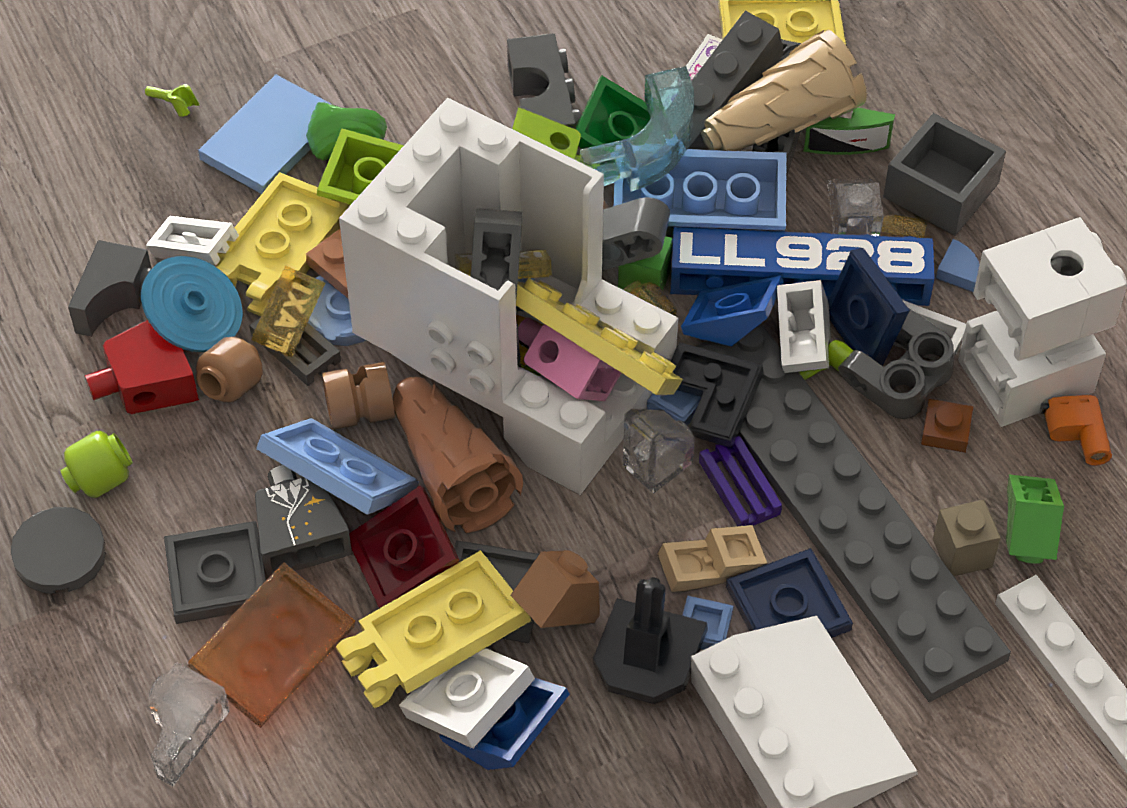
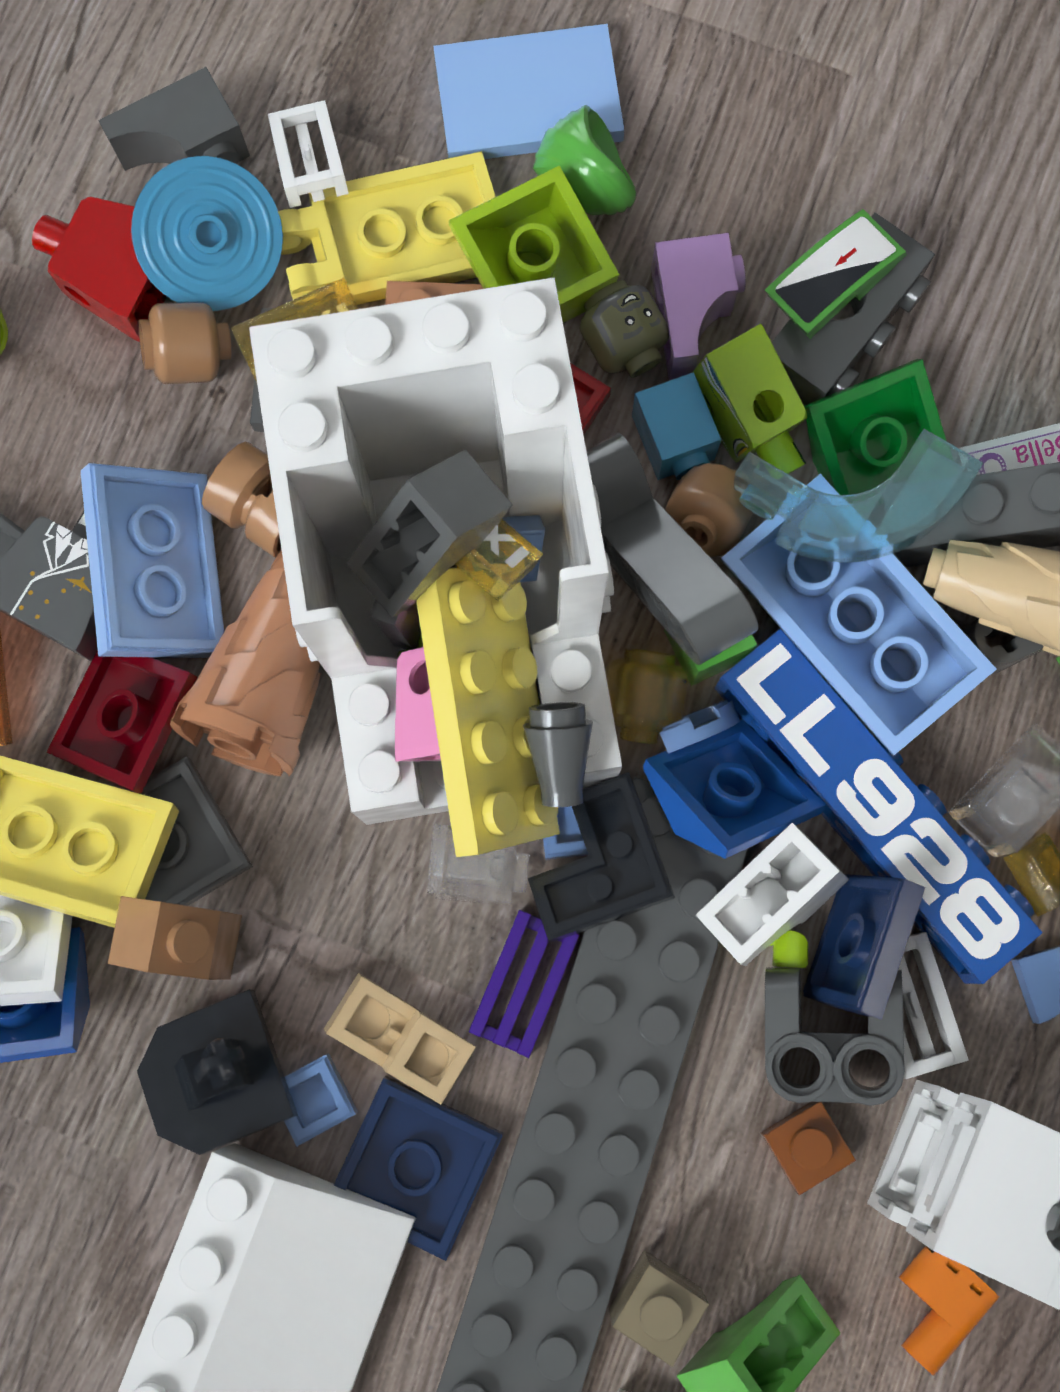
camera: 50 degrees right, 25 degrees up
(521, 72) = (834, 272): none -> slope
(645, 323) = (559, 750): none -> dark grey cone
(685, 301) = (699, 725): none -> medium blue tile

